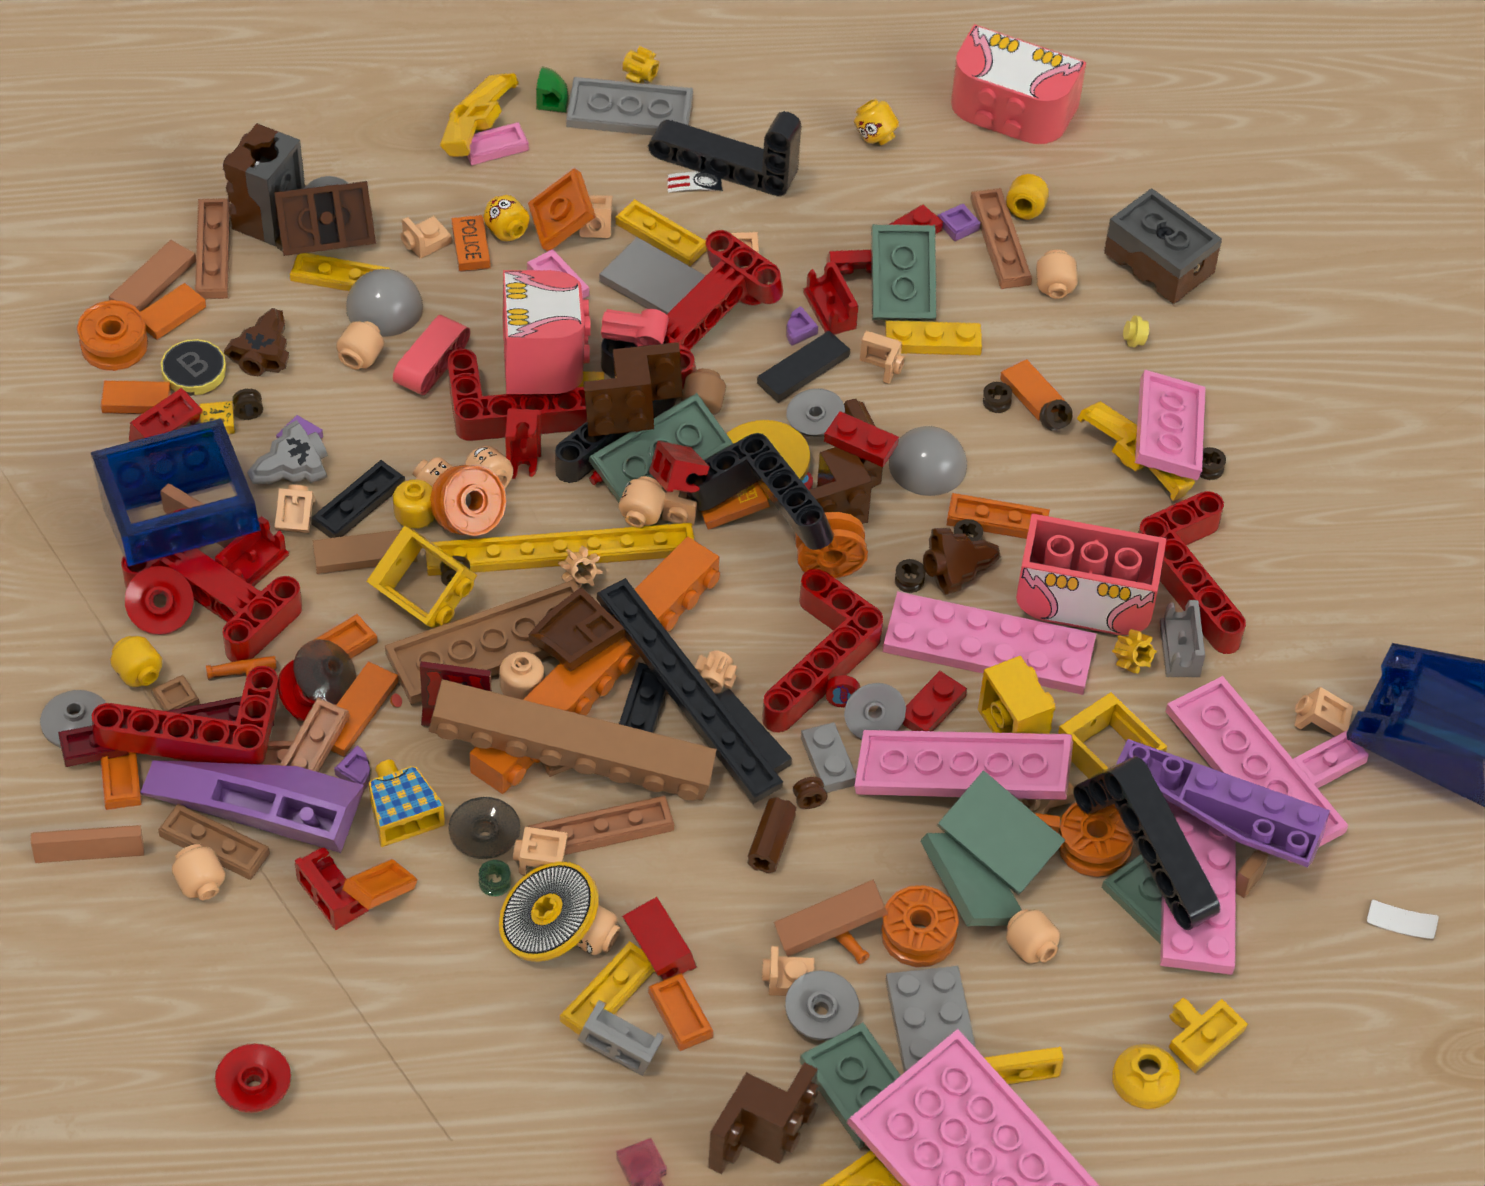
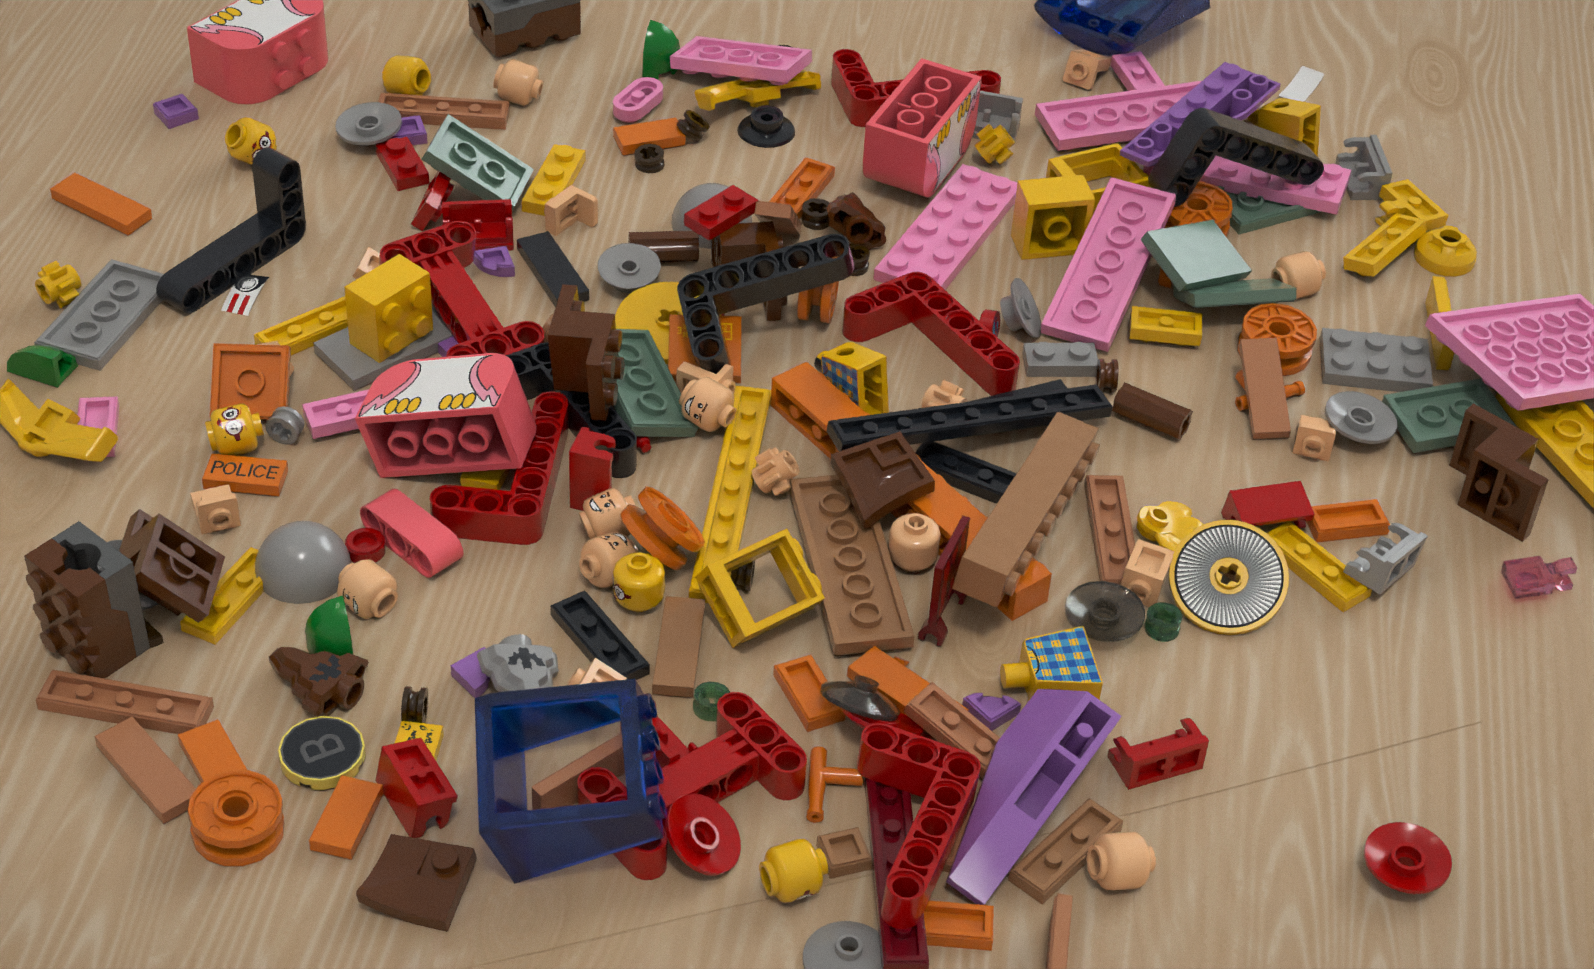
camera: 75 degrees left, 10 degrees down
(72, 447) = (418, 881): none -> reddish brown plate
(300, 338) = (329, 628): none -> green brick
(317, 576) = (701, 705): none -> clear green bush
(380, 884) = (1168, 704): orange tile -> none
(412, 331) = (365, 544): none -> red tile
(528, 247) = (285, 425): none -> light grey bush
(622, 874) = (1166, 523): none -> yellow plate
(641, 329) = (484, 336): coral piece -> none
(664, 260) = (389, 308): none -> yellow brick
(673, 464) = (690, 355): red hinge -> none
(712, 598) = (857, 373): none -> yellow torso
(765, 61) = (101, 203): none -> orange tile
(896, 490) = (782, 215): none -> nougat tile
(905, 831) = (1165, 326): none -> yellow plate
(914, 67) = (175, 111): none -> medium lavender tile
(933, 703) = (1003, 269): red plate -> none
(943, 190) = (368, 123): none -> light grey dish
(1080, 366) = (637, 99): none -> bright pink plate
(1093, 476) = (766, 128): none -> black piece
(1123, 1011) = (1384, 244): none -> yellow plate
(1136, 331) = (610, 58): light yellow plate -> none
(1152, 356) = (658, 47): none -> green brick
(1257, 987) = (1367, 166): none -> light grey hinge
(1280, 885) = (1292, 119): none -> yellow torso

